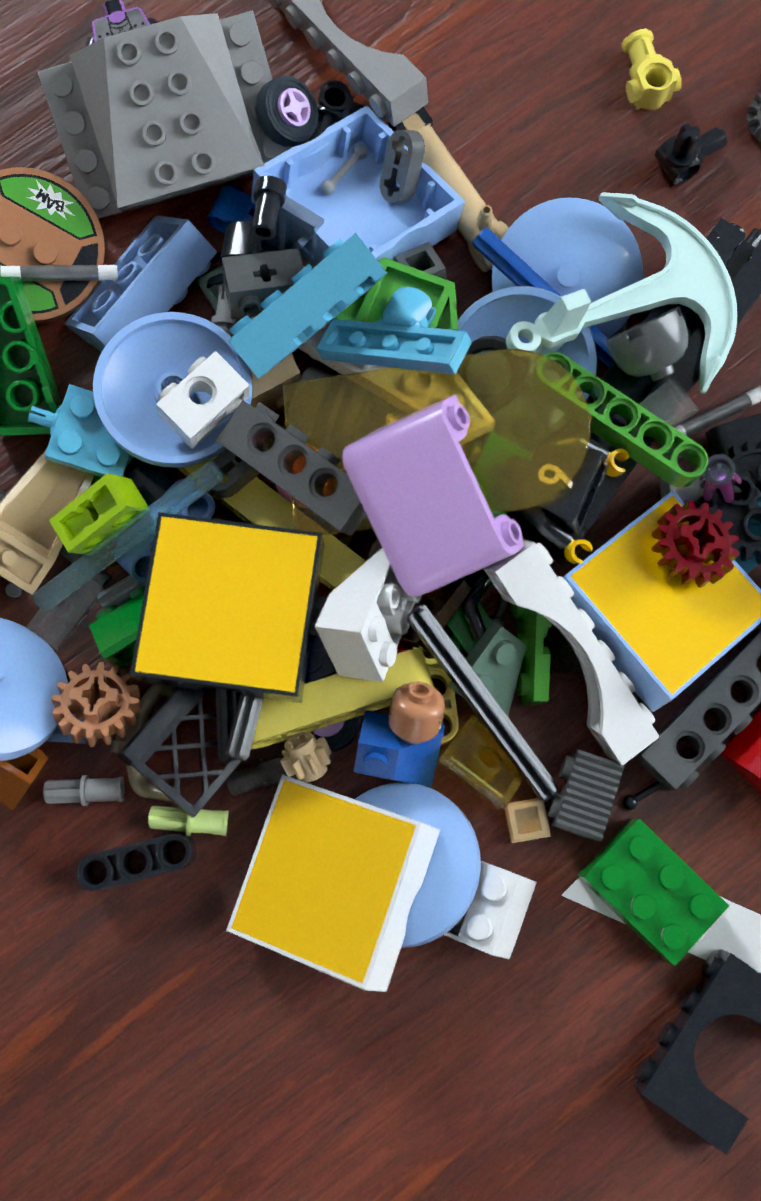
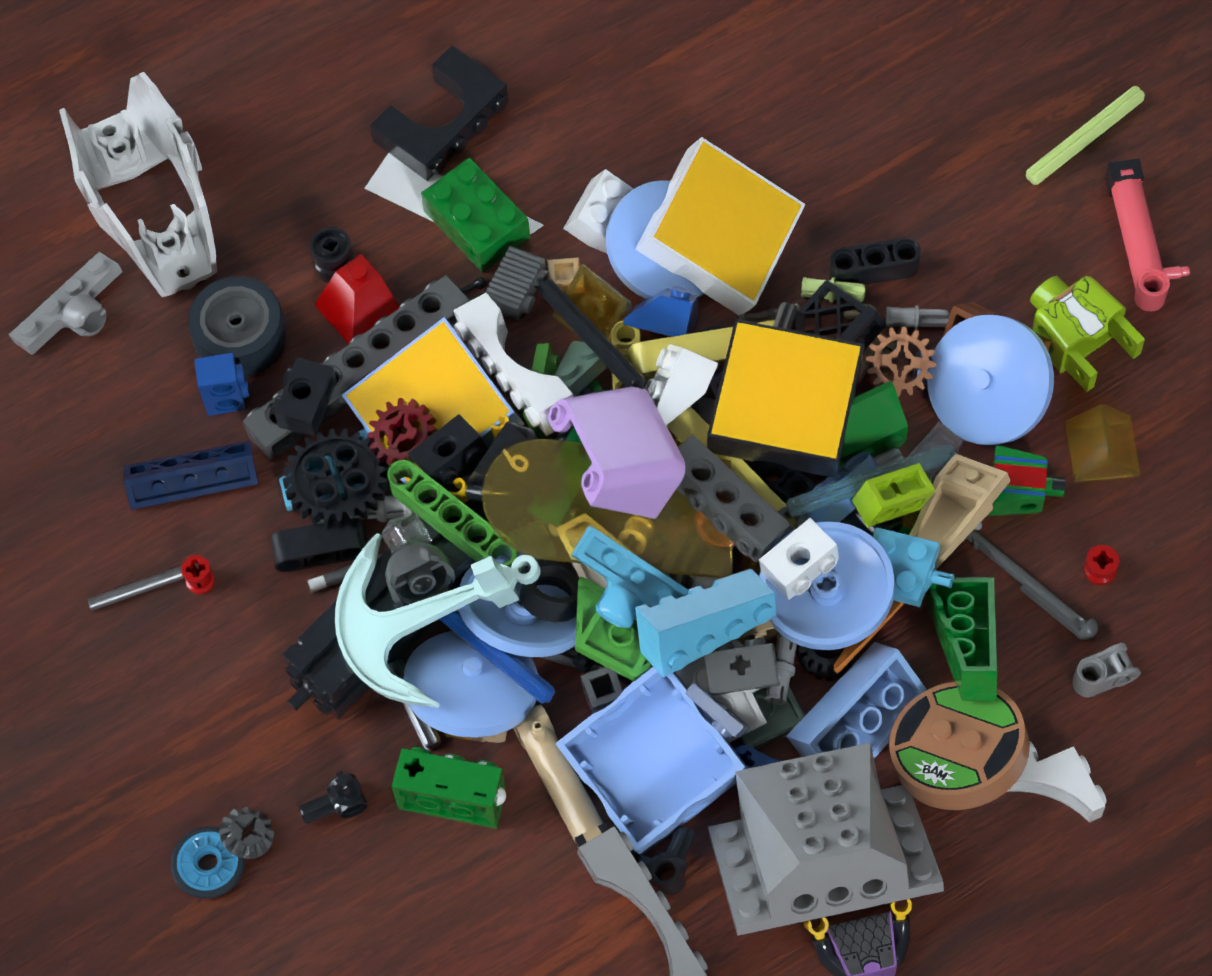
camera: 170 degrees left, 15 degrees down
(61, 272) = (928, 711): flat silver bar -> none
(242, 237) = (751, 705): black flag -> none
(289, 97) = (711, 850): black wheel -> none
(306, 757) = (734, 308): tan gear -> none
(359, 153) = (646, 826): light grey hinge -> none
(402, 166) = (609, 782): dark grey beam -> none
(416, 712) = (644, 320): nougat head -> none
(572, 157) = (449, 787): none -> green piece
(649, 69) = (360, 885): light yellow connector -> none
(656, 500) = (449, 452): none -> black brick
(719, 474) = (375, 477): piece -> none

